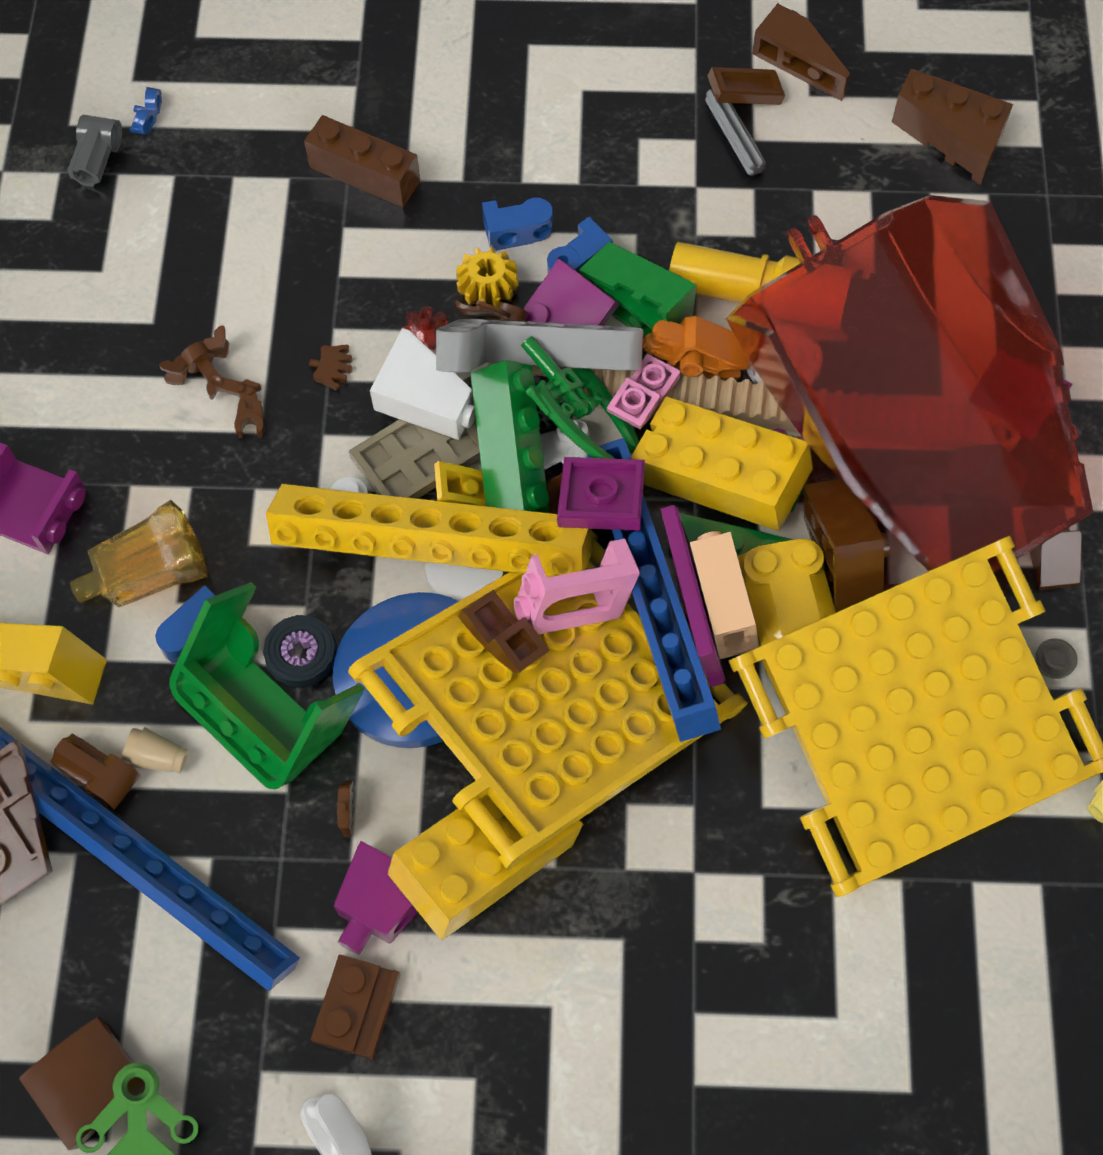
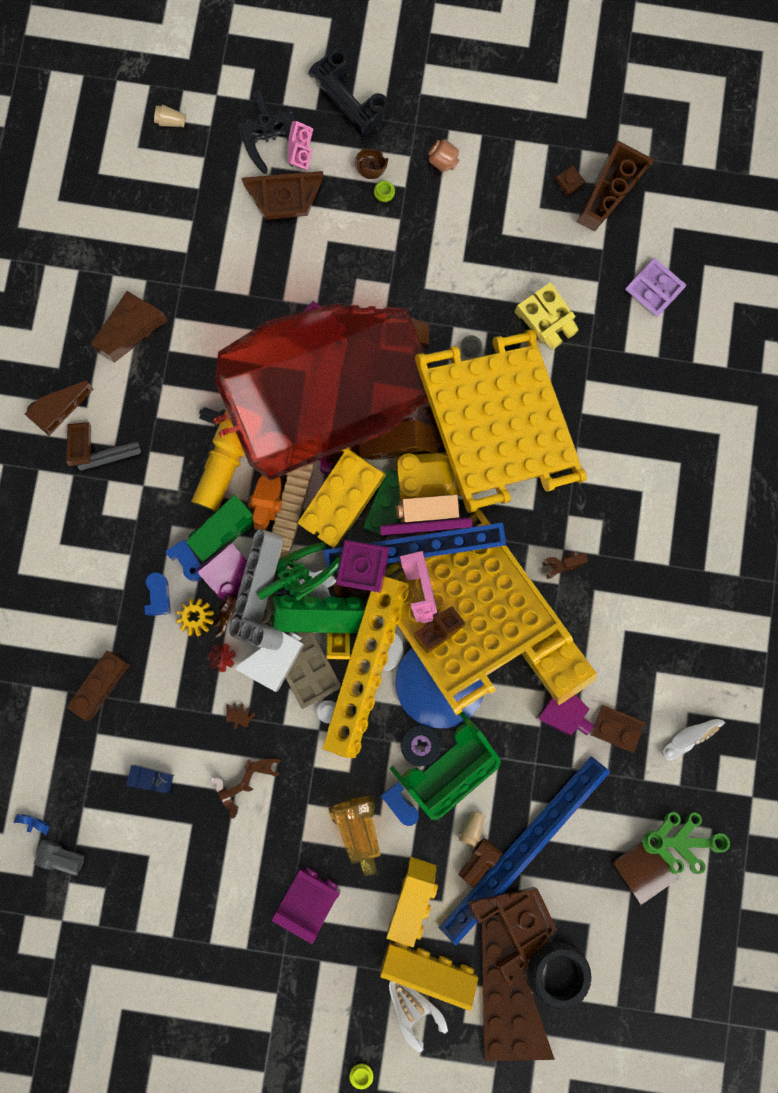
camera: 90 degrees left, 15 degrees up
(220, 247) = (149, 779): none -> dark blue leg
(345, 808) = (517, 726): reddish brown piece -> none
(644, 392) = (293, 535): bright pink slope -> none
(663, 866) = (569, 562): none -> reddish brown plate

